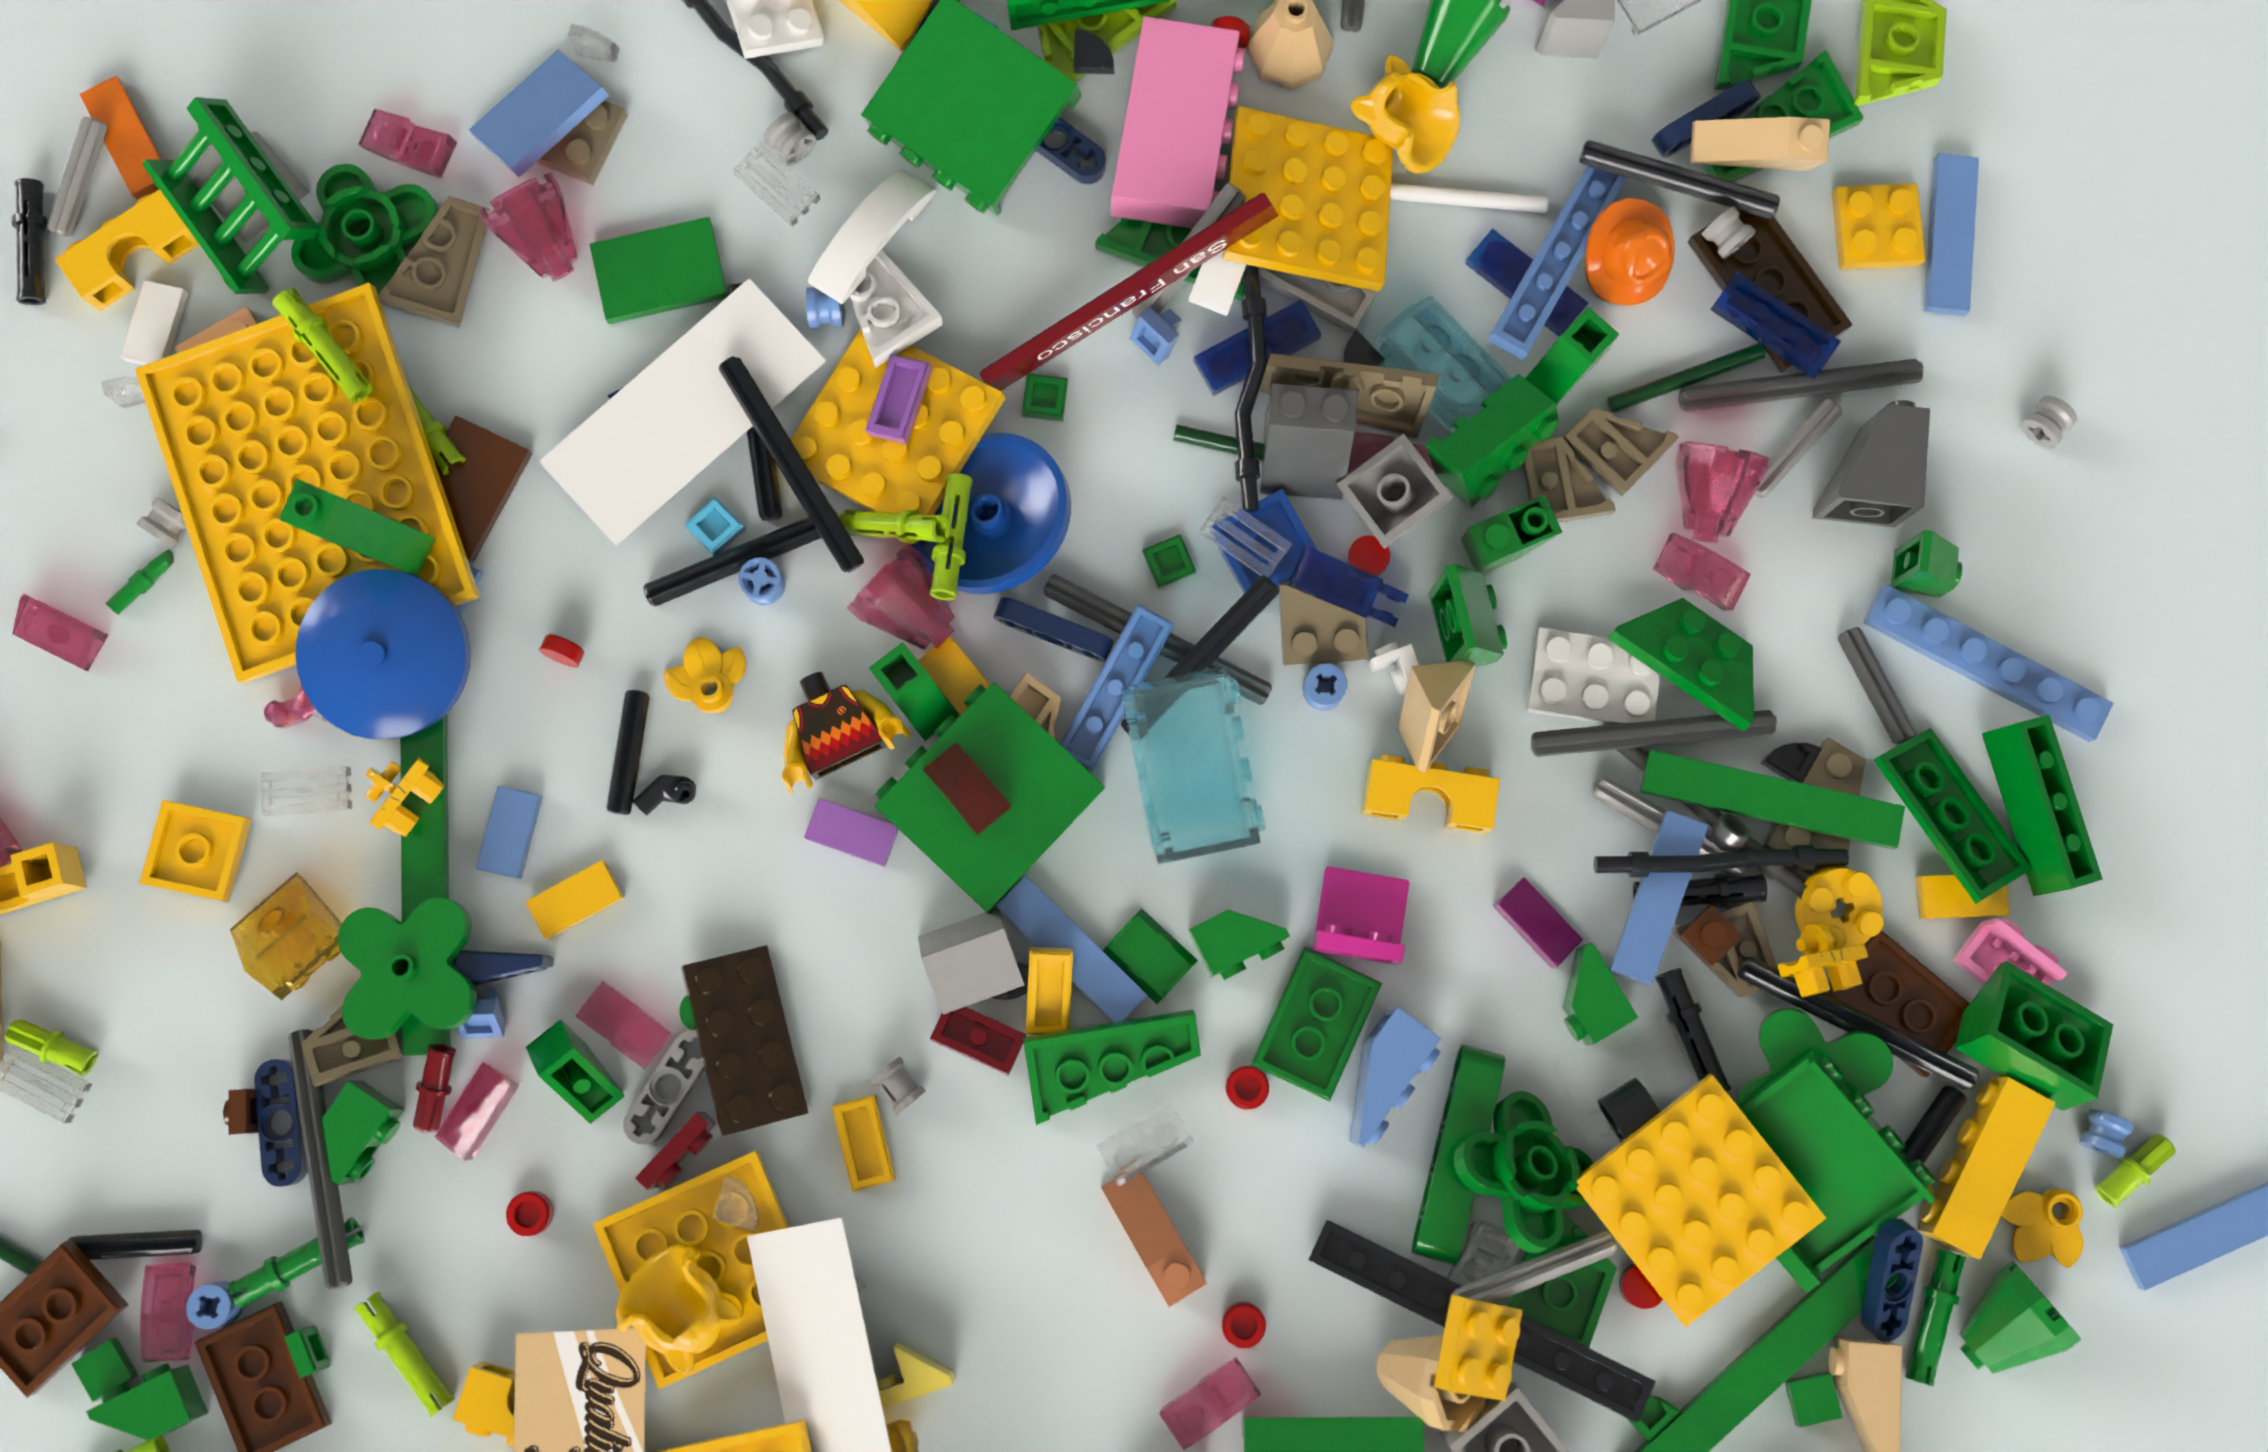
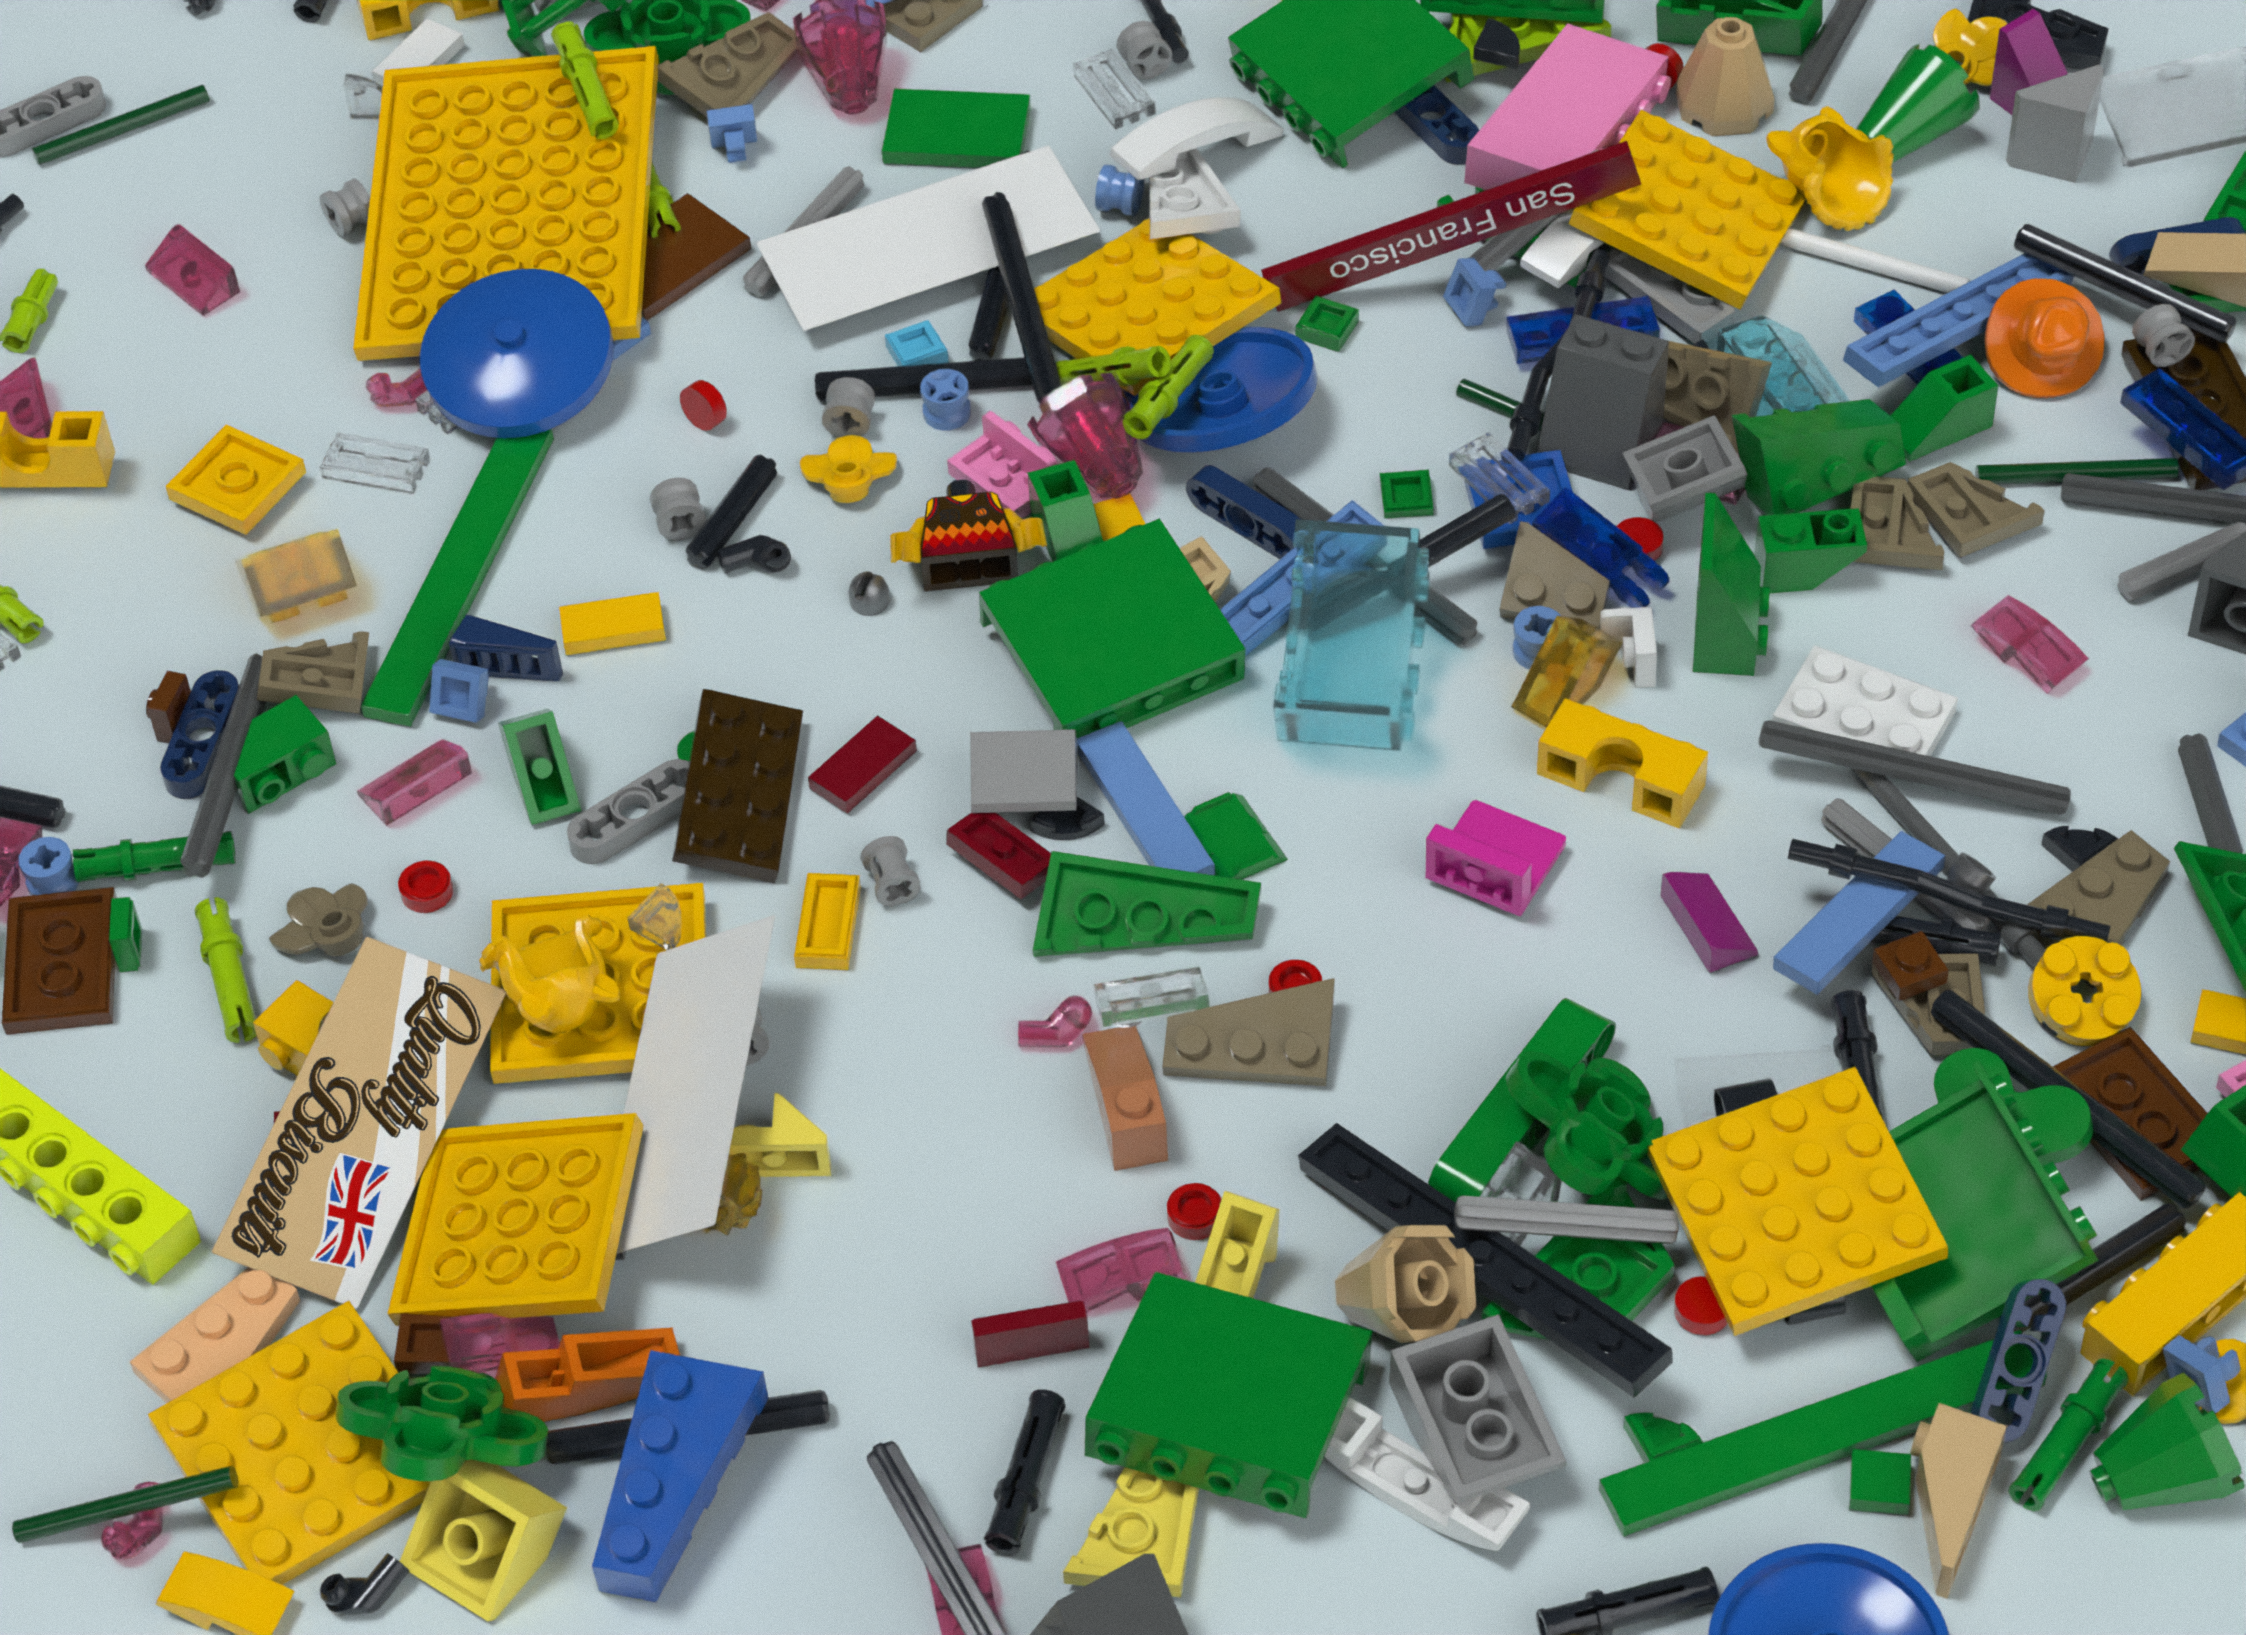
camera: 25 degrees right, 30 degrees down
(140, 582) = (295, 255): green piece -> none
(356, 528) = (547, 203): green slope -> none
(392, 812) = (473, 464): yellow hips -> none
(431, 986) = (408, 612): green plant -> none
(433, 1088) = (380, 738): dark red axle -> none
(454, 1276) = (323, 921): none -> dark tan plate
(468, 335) = (732, 129): none -> medium blue tile
(509, 832) = (570, 549): medium blue tile -> none
(574, 412) = (825, 205): none -> light grey axle
(584, 770) = (677, 508): none -> light grey wheel
(623, 1024) = (610, 742): clear pink slope -> none
(685, 617) = (848, 407): none -> light grey wheel
(690, 1138) = (617, 860): dark red plate -> none
(781, 804) = (876, 595): none -> flat silver hinge
(833, 979) = (862, 764): none -> dark red tile
(839, 646) = (1001, 463): none -> bright pink bracket
(851, 832) = (943, 640): medium lavender tile -> none
(899, 399) = (1163, 267): medium lavender tile -> none
(967, 789) = (1092, 601): clear red slope -> none
(1049, 990) = (1105, 817): yellow tile -> none
(1084, 1189) = (1060, 1027): none -> clear pink arm
(1233, 938) = (1339, 836): green slope -> none
(1238, 1155) = (1256, 1038): none -> dark tan wing
(1295, 1376) = (1239, 1245): none -> light yellow slope
(1316, 1024) = (1403, 948): green tile -> none
(1359, 717) = (1567, 666): none -> clear yellow slope
(1388, 1063) = (1468, 986): medium blue slope -> none
(1434, 708) = (1661, 666): tan slope -> none
(1478, 1348) = (1462, 1240): yellow plate -> none
(1594, 999) = (1748, 1002): green slope -> none
(1695, 656) = (1987, 706): green wing -> none
(1716, 487) = (2074, 554): clear pink cone -> none
(1772, 799) = (2036, 858): green tile -> none
(1818, 946) = (2036, 1009): yellow hips -> none
(2015, 1240) = (2204, 1368): none -> medium blue tile

